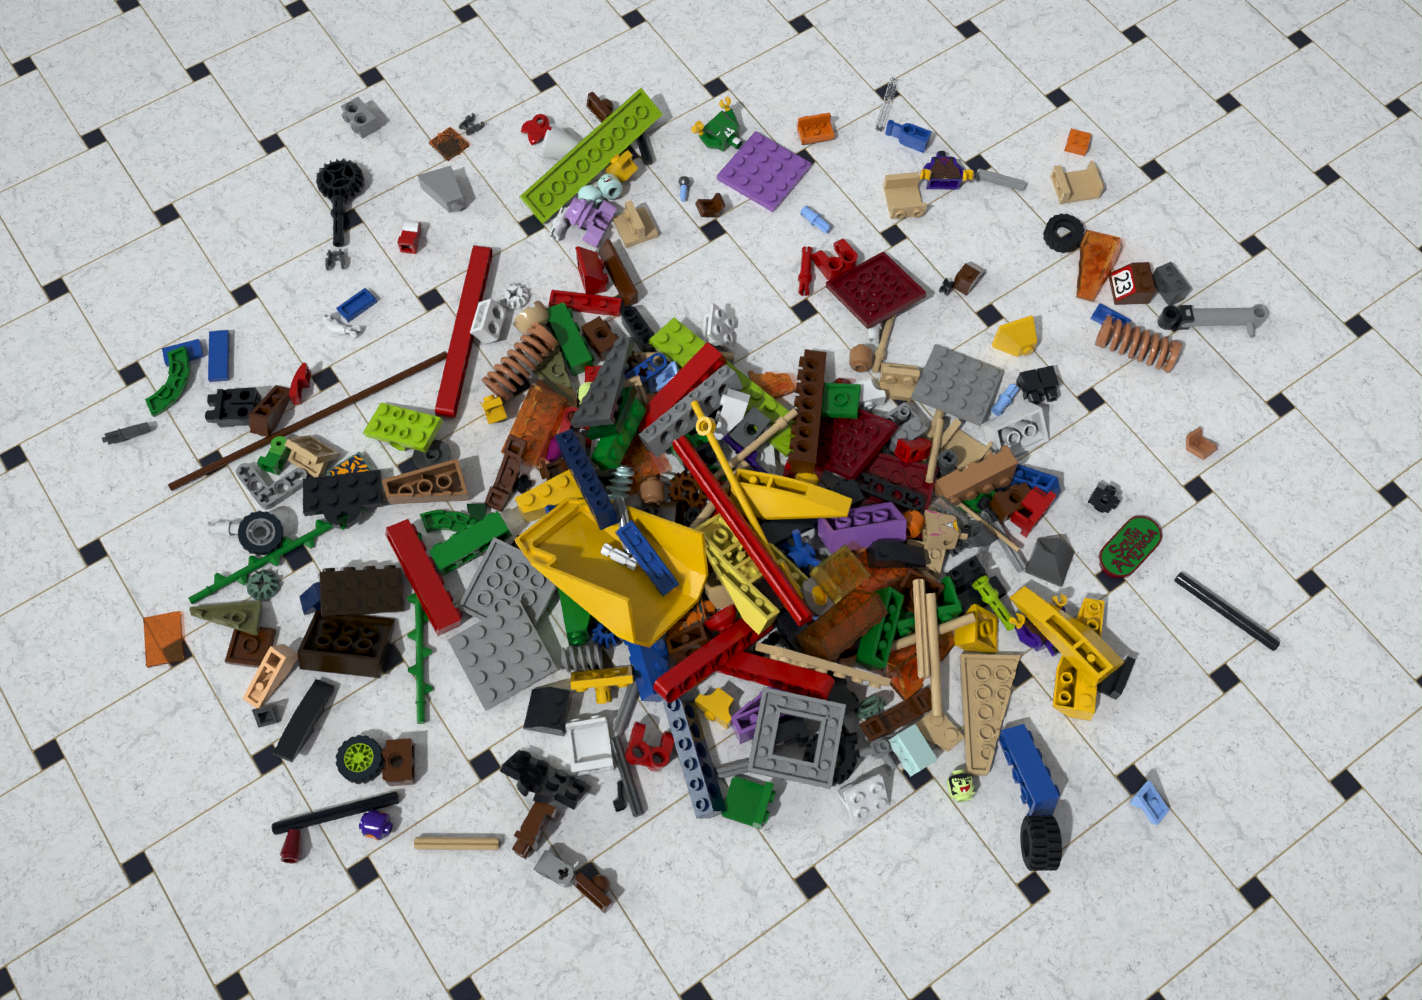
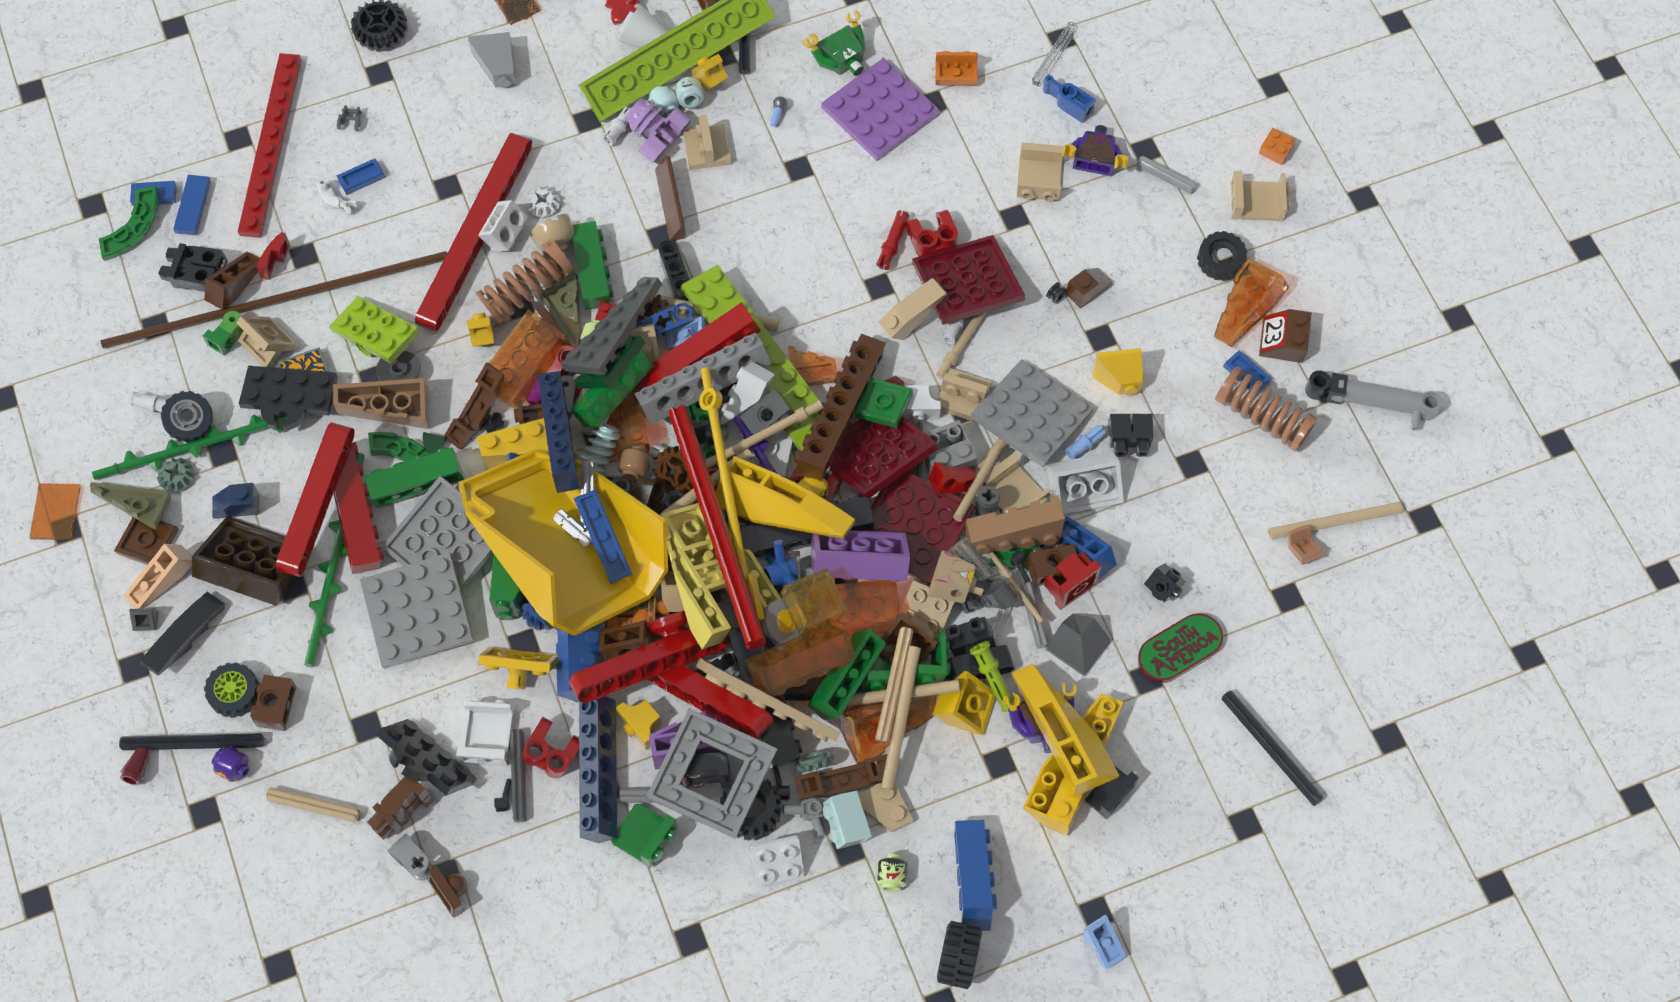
camera: 15 degrees right, 0 degrees up
(126, 433) = (71, 272): dark grey piece -> none
(265, 491) = (206, 371): light grey beam -> none
(273, 295) = (269, 145): none -> red plate
(338, 213) = (367, 65): black pin -> none
(361, 591) = (265, 502): dark brown bracket -> none
(393, 580) = (315, 499): none -> red beam
(409, 236) = (441, 108): red leg -> none
(548, 710) = (452, 683): black slope -> none
(581, 658) = (504, 634): light grey piece -> none
(587, 303) = (624, 226): red tile -> none
(591, 271) = (638, 190): red slope -> none
(593, 331) = (622, 262): reddish brown brick -> none
(625, 708) = (538, 699): light grey axle -> none
(710, 207) = (801, 140): reddish brown bracket -> none
(718, 328) = (768, 288): white bracket -> none
(815, 219) = (924, 179): light blue axle -> none
(841, 321) = (912, 310): none -> tan slope
(861, 358) = (926, 357): medium nougat head -> none
(888, 490) = (904, 524): black beam -> none
(894, 555) = (889, 595): black slope -> none
(914, 523) = (922, 563): orange head -> none
(985, 696) = (951, 779): tan wing -> none
(1170, 284) = (1332, 344): dark grey brick -> none
(1216, 419) = (1338, 519): none -> tan piece

